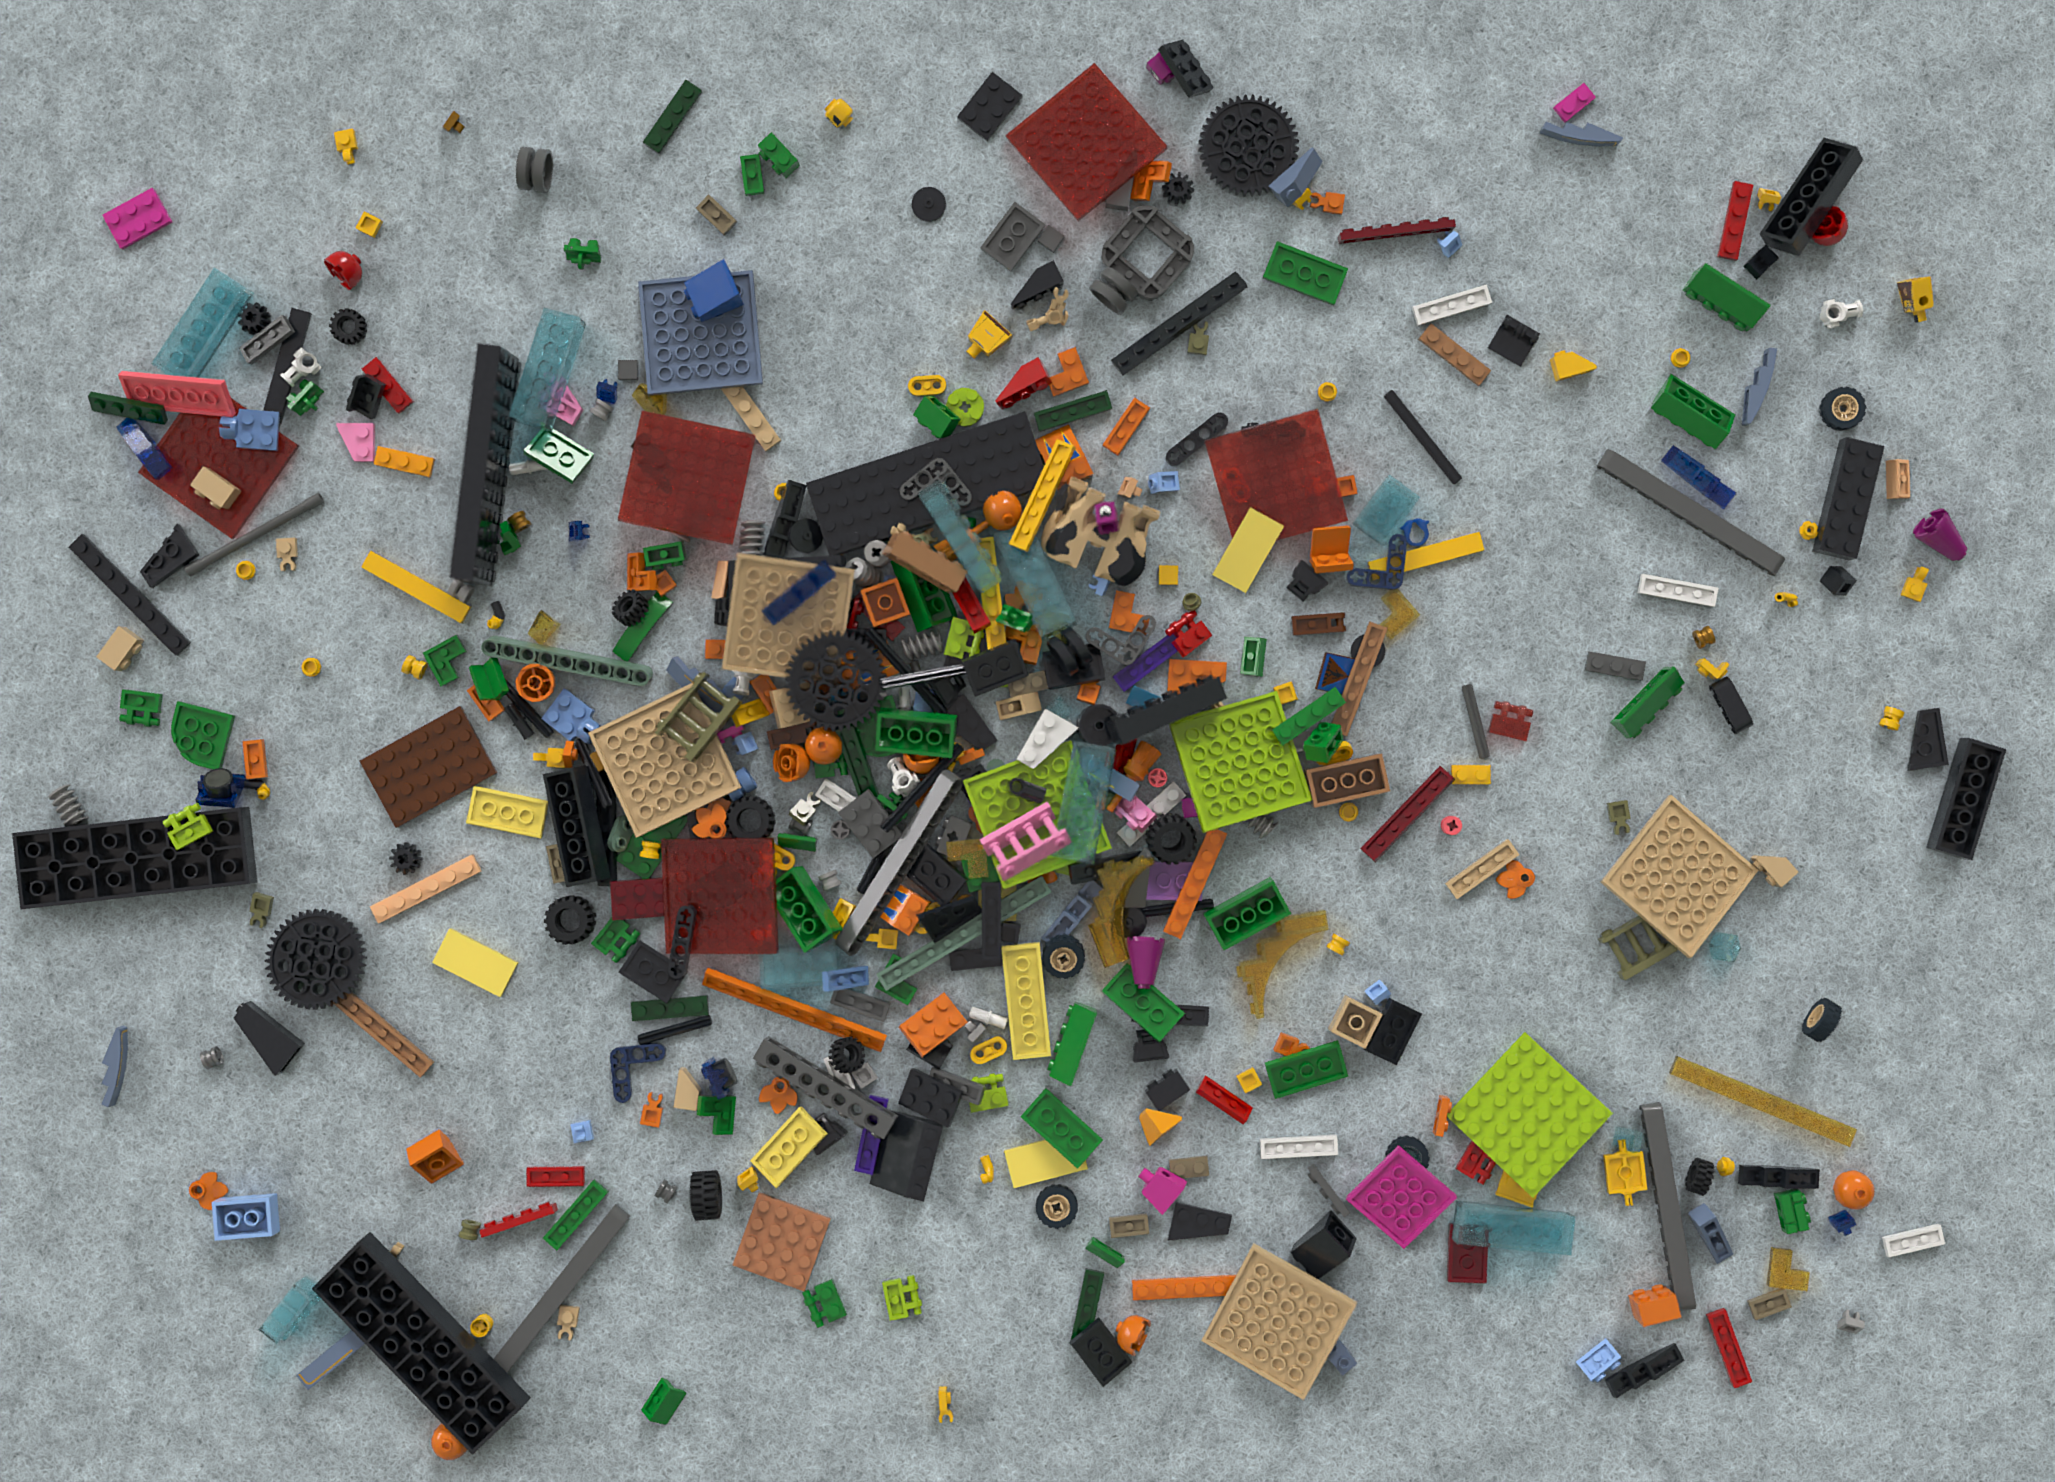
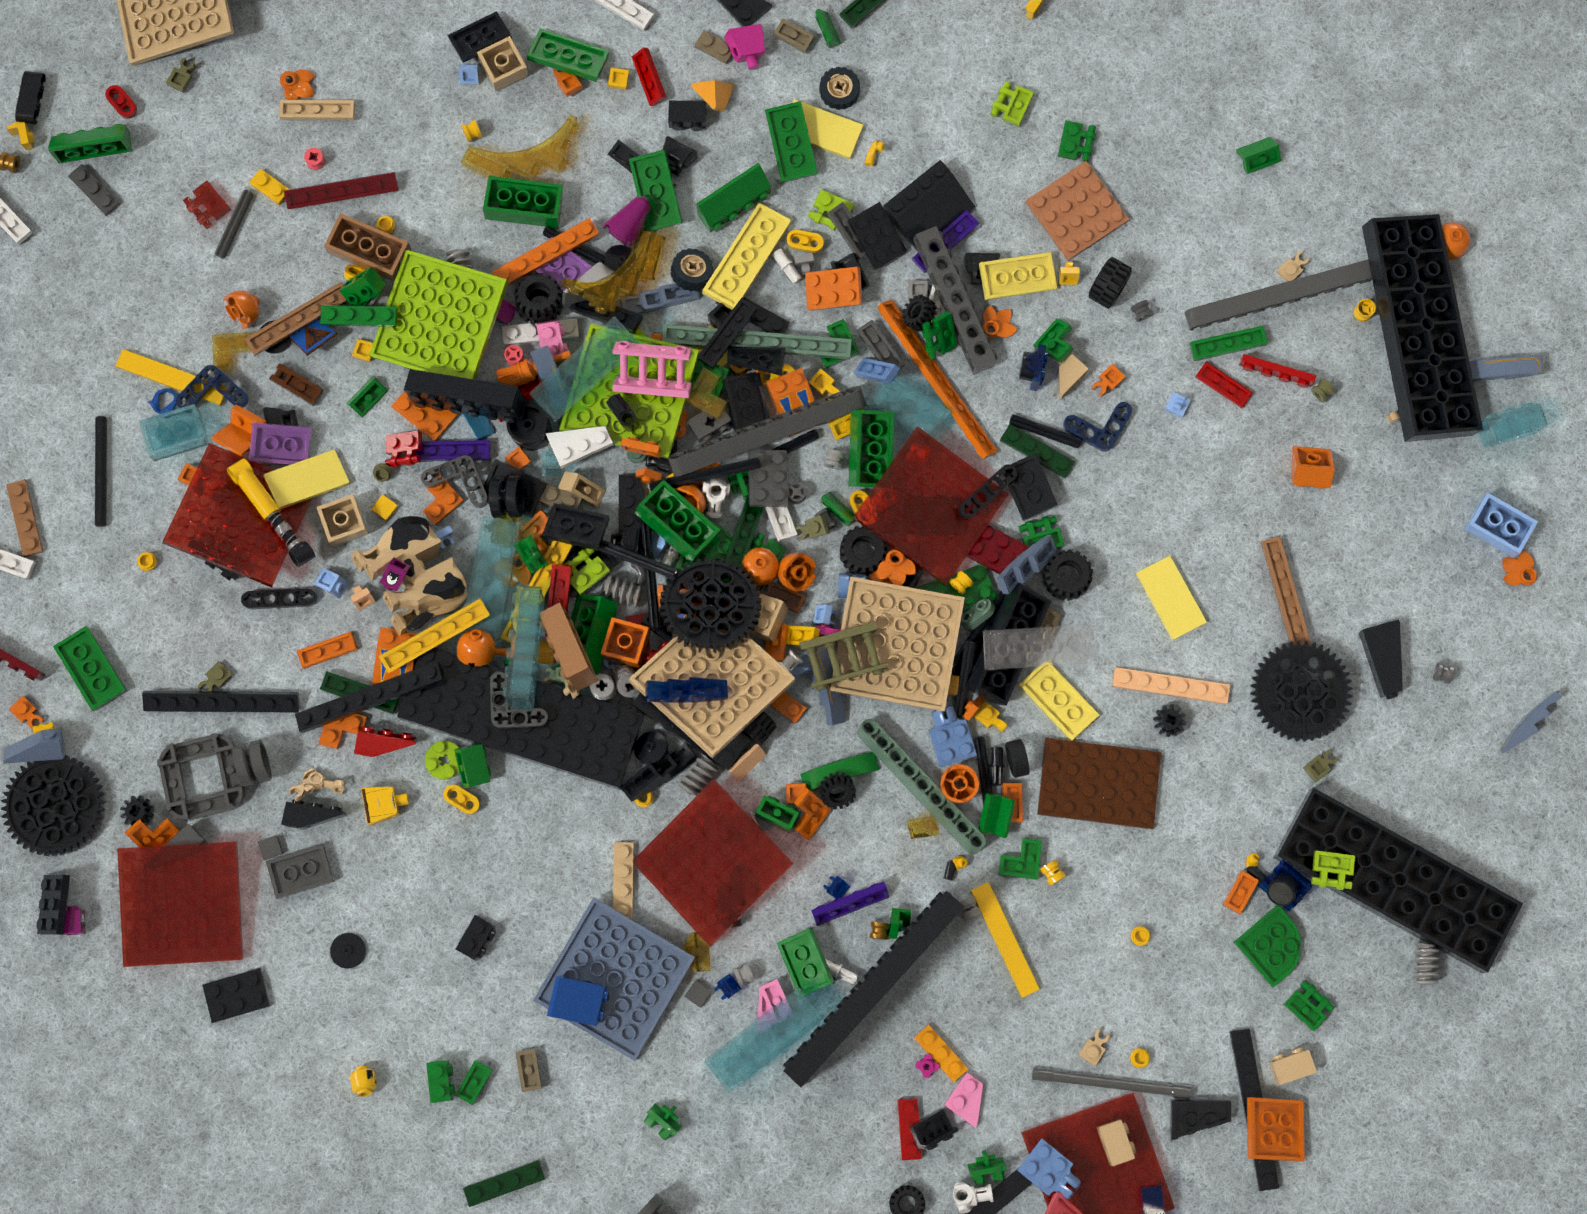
camera: 145 degrees left, 10 degrees down
(99, 589) = (1275, 1129): none -> orange plate
(407, 448) = (932, 1065): none -> dark pink plate
(504, 738) = (1017, 758): none -> black tyre
(550, 839) = (1037, 647): none -> clear plate
(554, 533) = (850, 903): none -> dark purple plate
(607, 900) = (1026, 563): none -> sand blue slope
(815, 1051) = (944, 333): none -> green plate
(834, 286) = (475, 938): none -> black bracket
(997, 769) = (633, 445): none -> orange plate
(1059, 410) = (369, 697): none -> black plate
(1192, 538) = (342, 520): none -> tan brick
(1256, 500) = (243, 475): none -> piece
(1291, 562) = (279, 443): none -> medium lavender plate
(1411, 655) = (242, 305): none -> orange cylinder
(1651, 756) = (121, 102): none -> red plate

